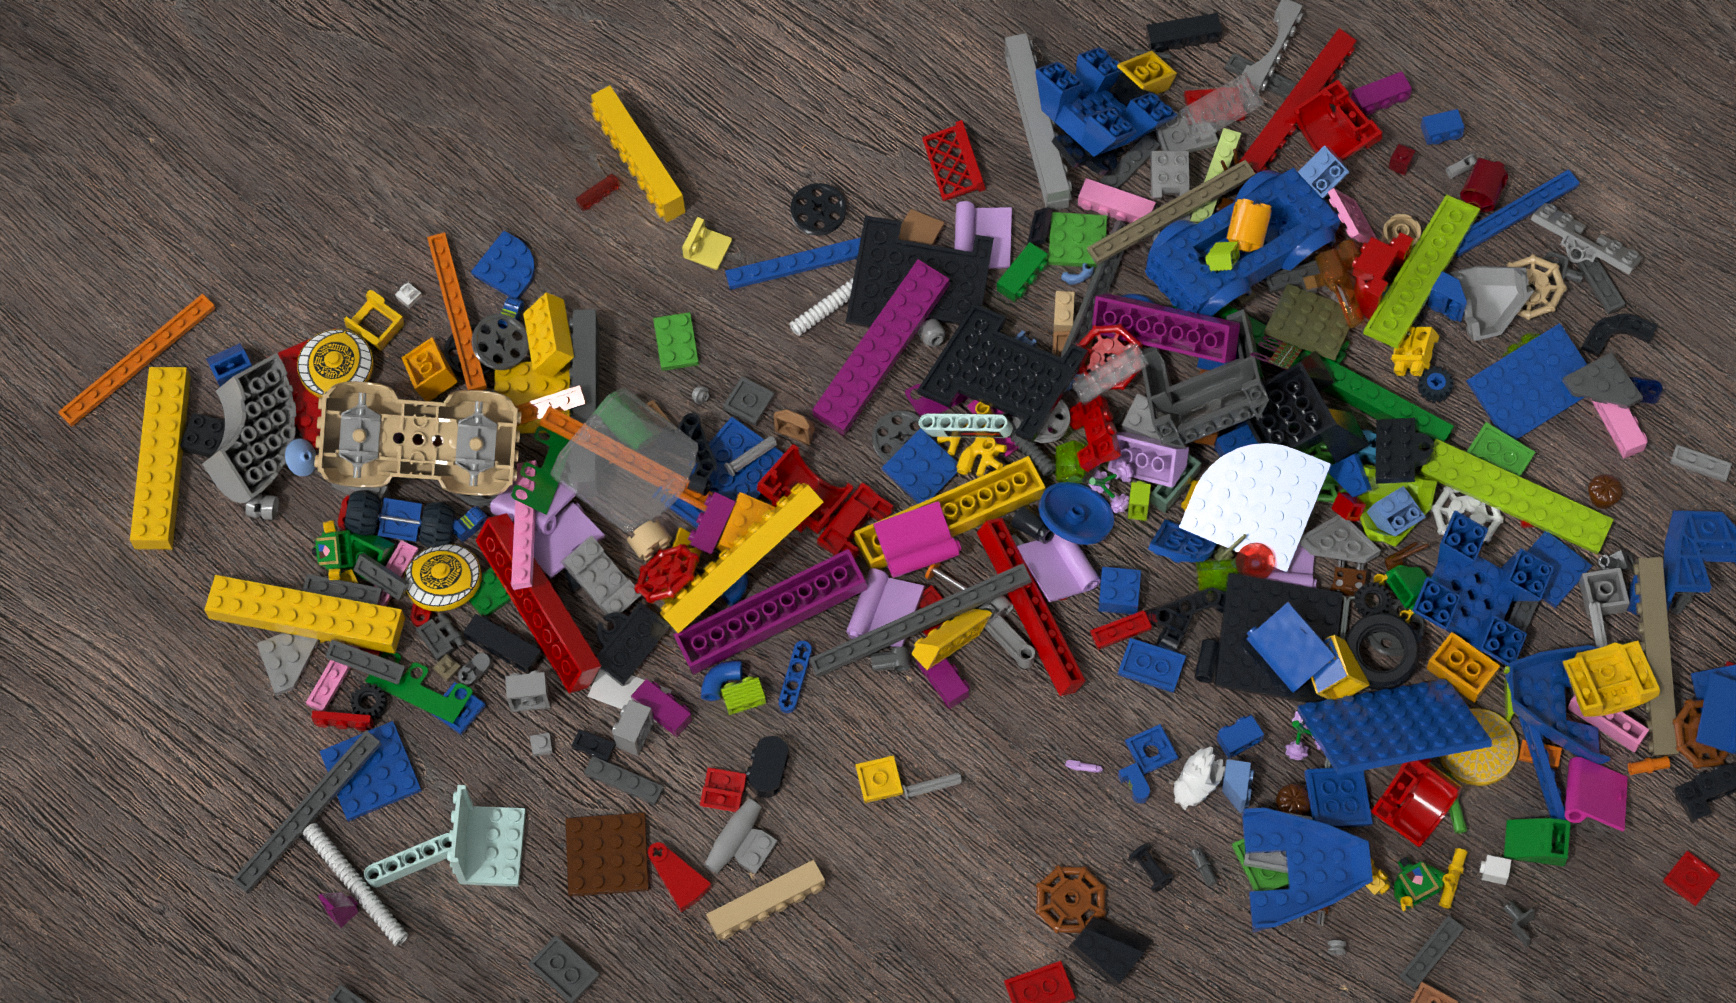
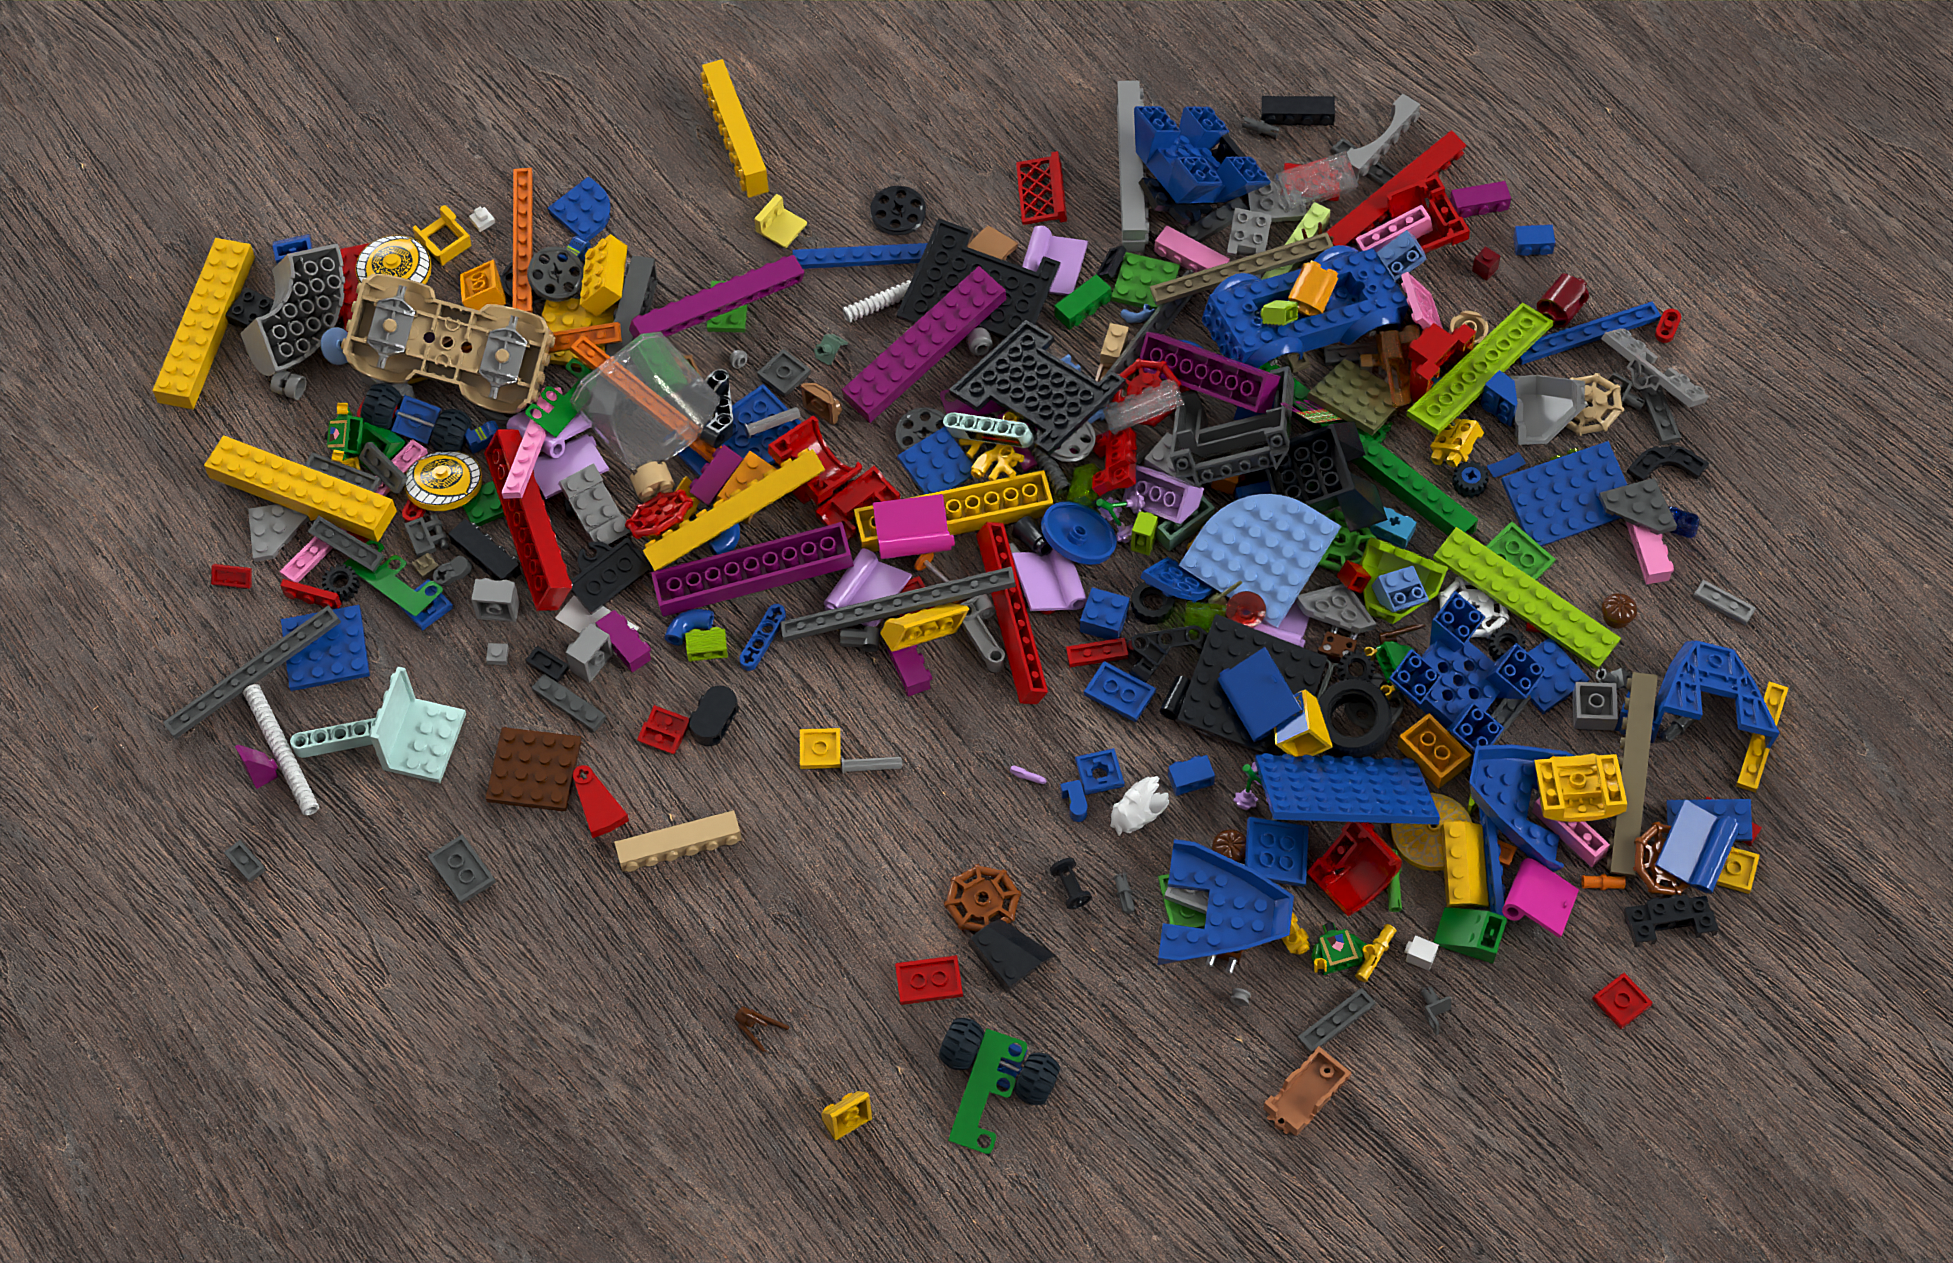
camera: 10 degrees right, 5 degrees down
(136, 360) = (207, 231): orange plate -> none
(258, 716) = (231, 576): none -> red plate
(597, 192) = (688, 157): clear red piece -> none
(668, 339) = (720, 298): none -> magenta brick
(741, 841) = (669, 781): light grey plate -> none
(786, 366) = (828, 348): none -> sand green bracket
(1149, 72) = (1252, 138): yellow slope -> none
(1155, 581) = (1151, 616): none -> black tyre
(1238, 783) = (1177, 816): medium blue slope -> none
(1304, 148) = (1415, 221): none -> bright pink brick
(1351, 475) = (1362, 546): blue wing -> none
(1400, 450) = (1416, 530): black plate -> none
(1461, 167) = (1544, 281): light grey bar -> none
(1465, 363) = (1506, 465): none -> blue sticker
(1502, 536) = (1504, 635): none -> black tyre
(1517, 776) = (1464, 865): none -> yellow slope
(1588, 192) = (1667, 327): none -> red plate
(1597, 624) = (1580, 729): light grey axle -> none

